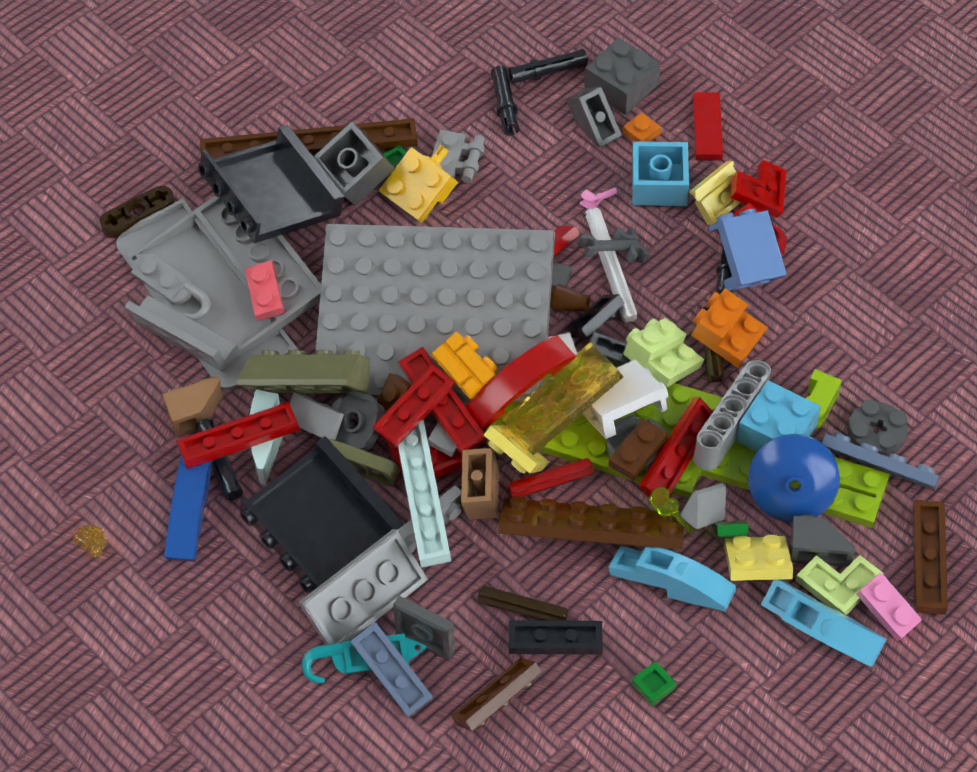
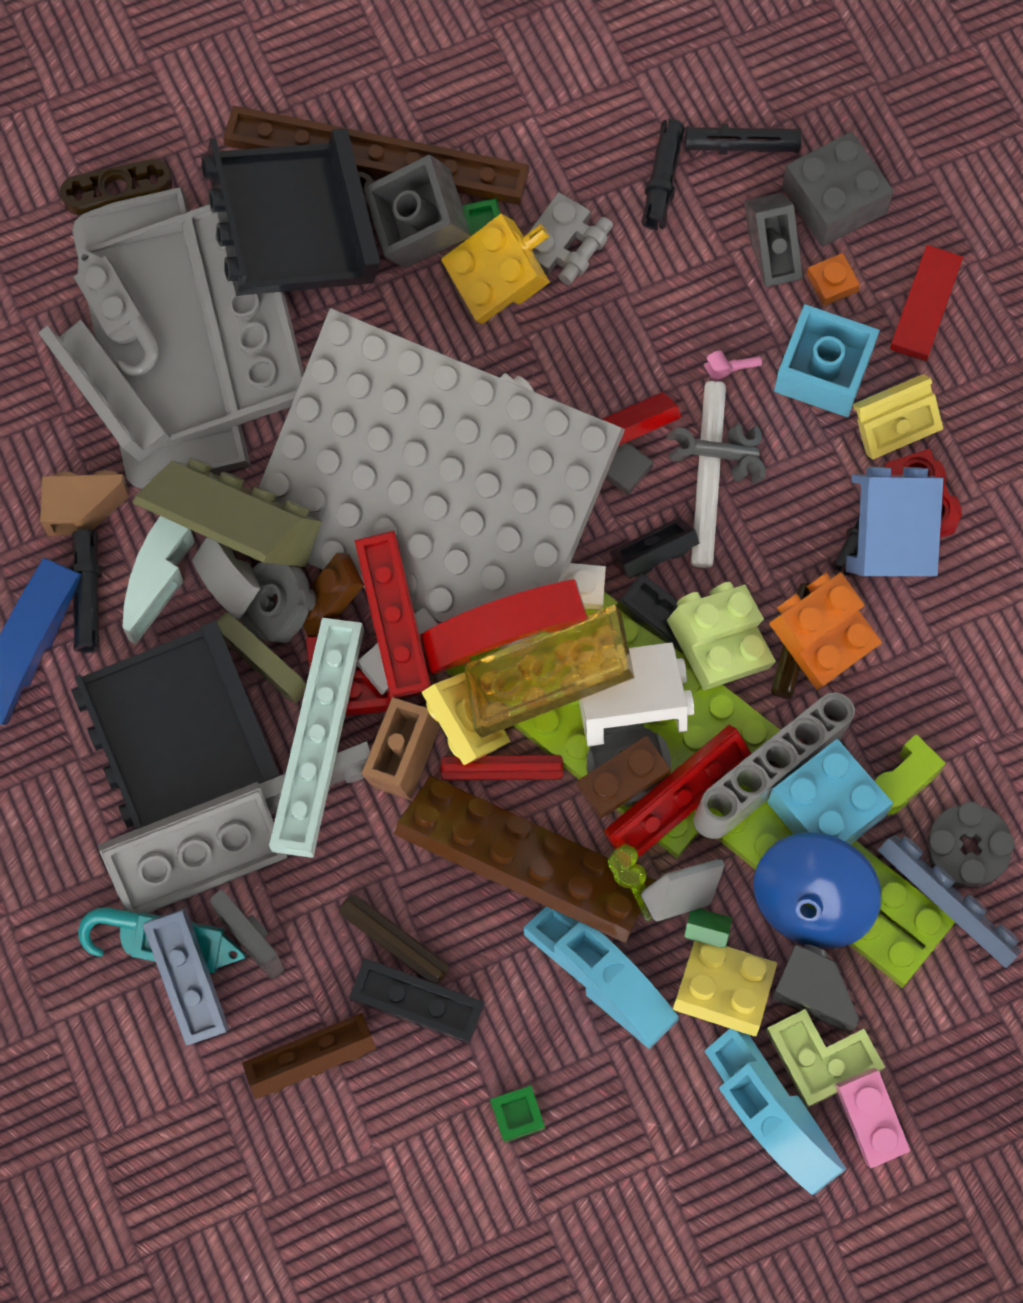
camera: 20 degrees right, 15 degrees up
(237, 435) = (113, 572): red tile -> none
(264, 290) = (228, 367): coral plate -> none
(413, 406) = (350, 613): red tile -> none
(463, 364) = (438, 578): light orange brick -> none
(567, 299) = (626, 510): reddish brown cone -> none
(762, 192) = (962, 436): red plate -> none
(929, 557) = (959, 1063): reddish brown plate -> none

